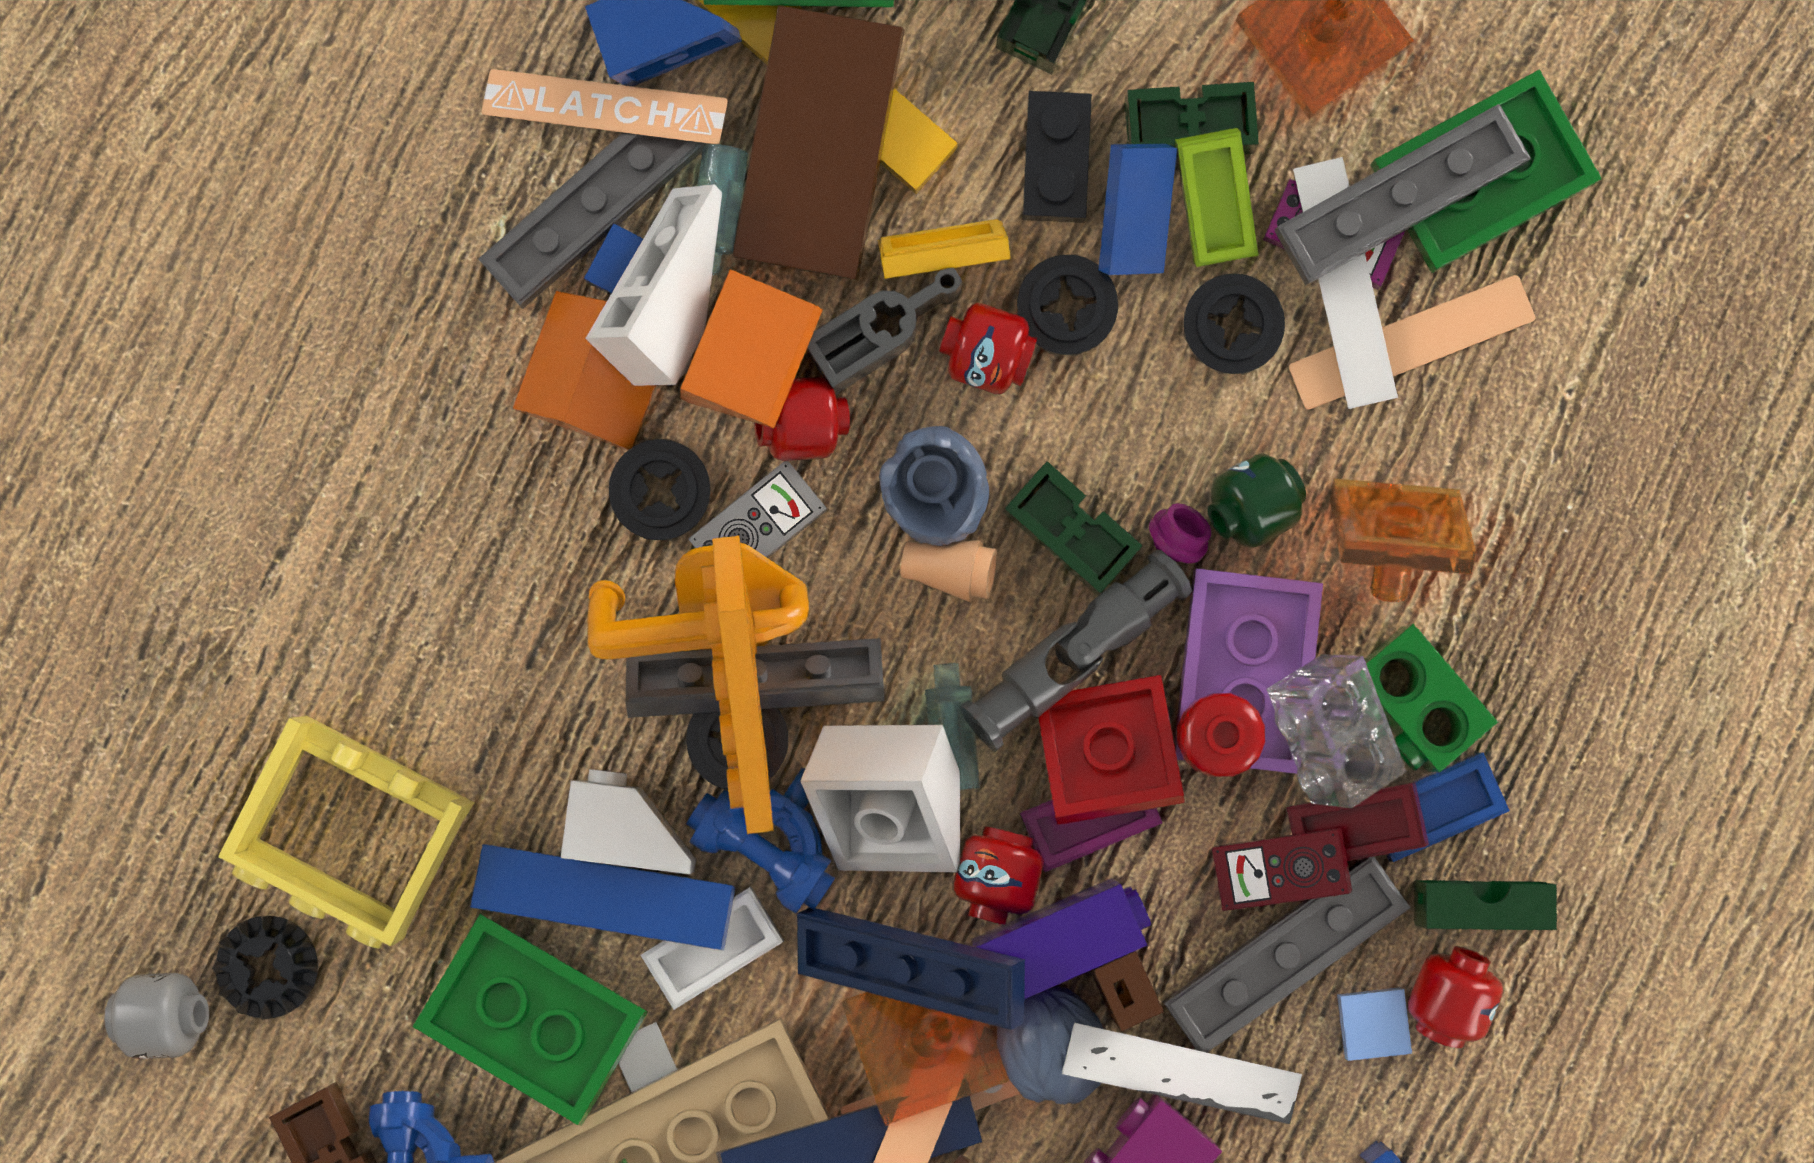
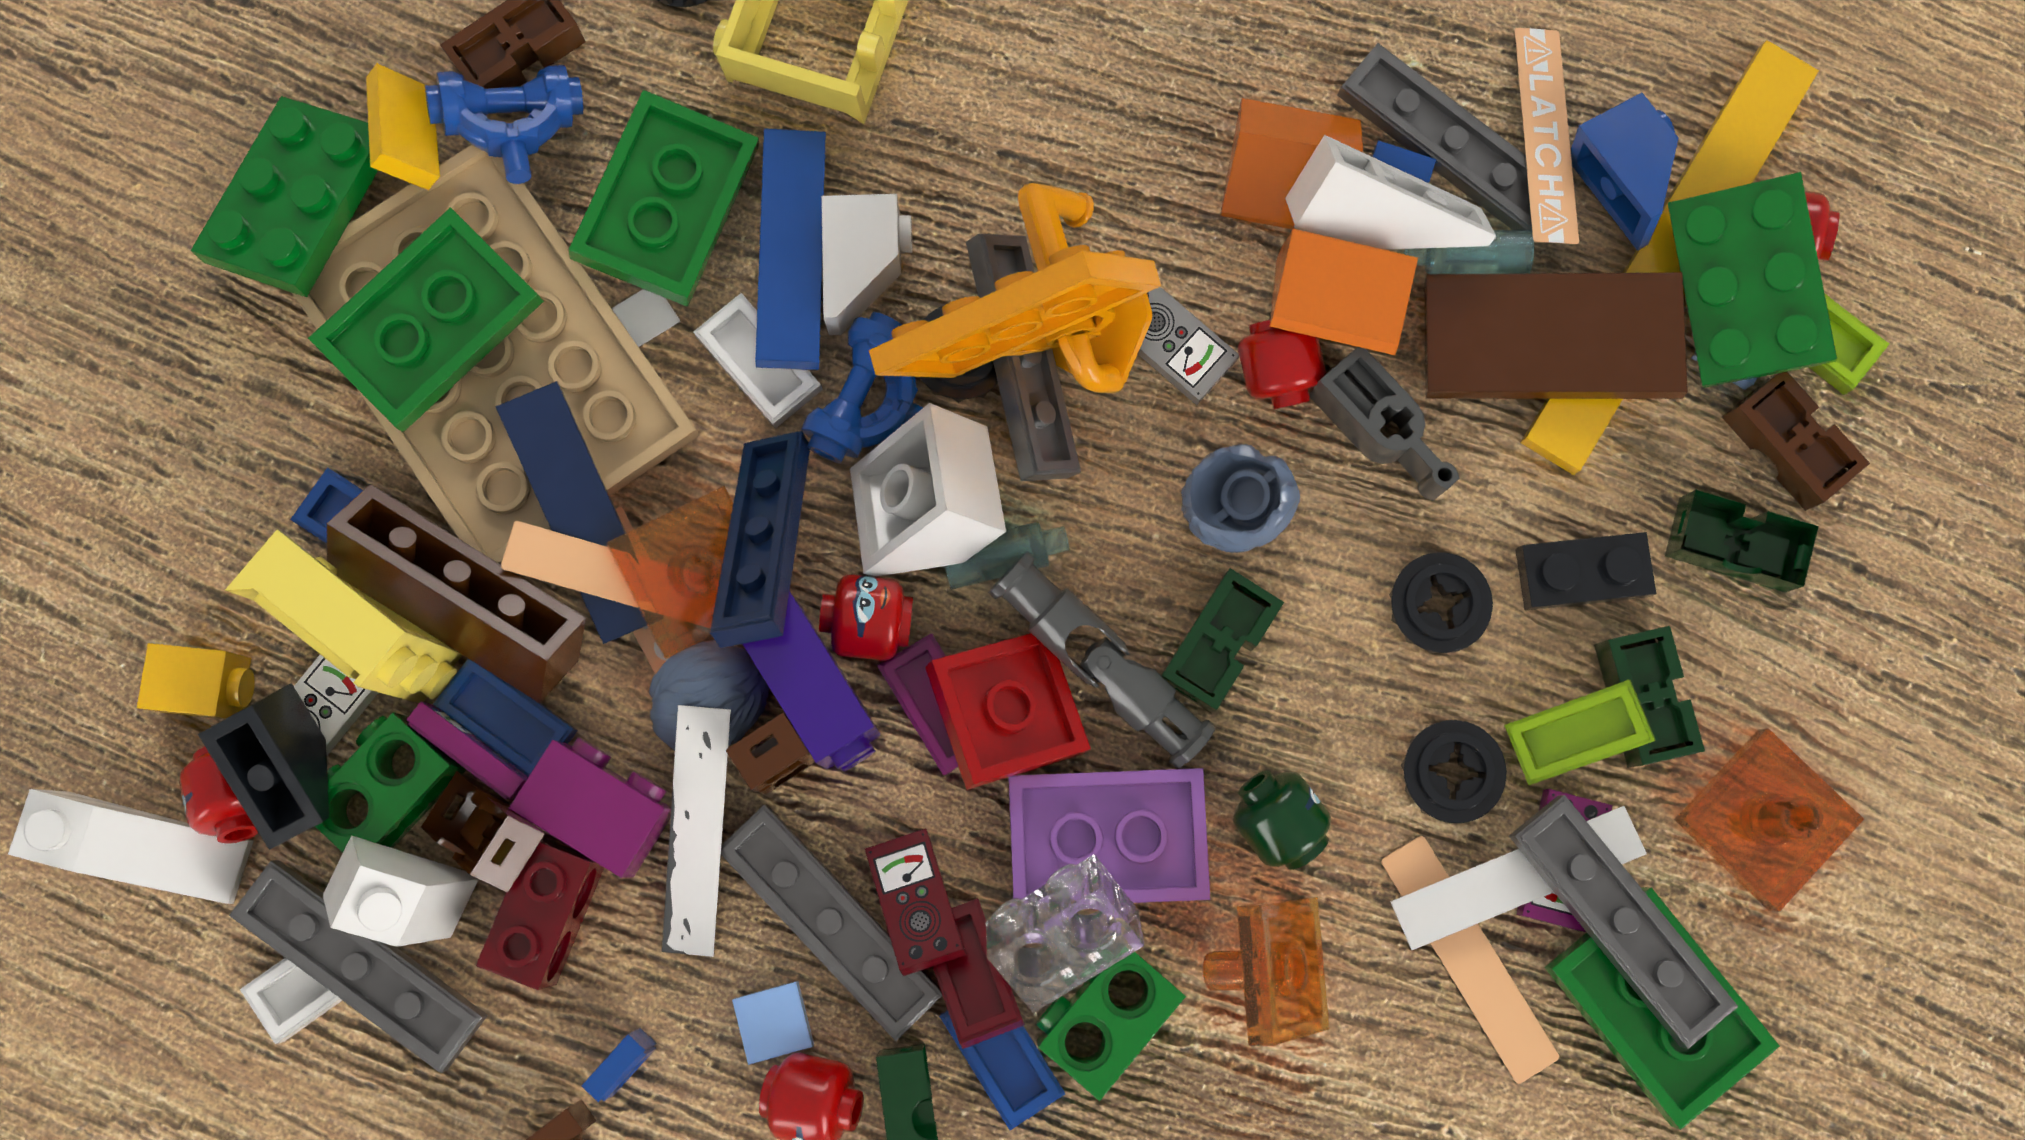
camera: 75 degrees right, 5 degrees down
(629, 489) = (1183, 216): black gear -> none
(943, 248) = (1474, 471): yellow tile -> none
(957, 569) = (1162, 533): light nougat cone -> none
(988, 348) = (1384, 528): red head -> none
(1137, 209) = (1553, 653): blue tile -> none
(1180, 533) = (1235, 748): magenta plate -> none
(1221, 735) = (1040, 812): red head -> none

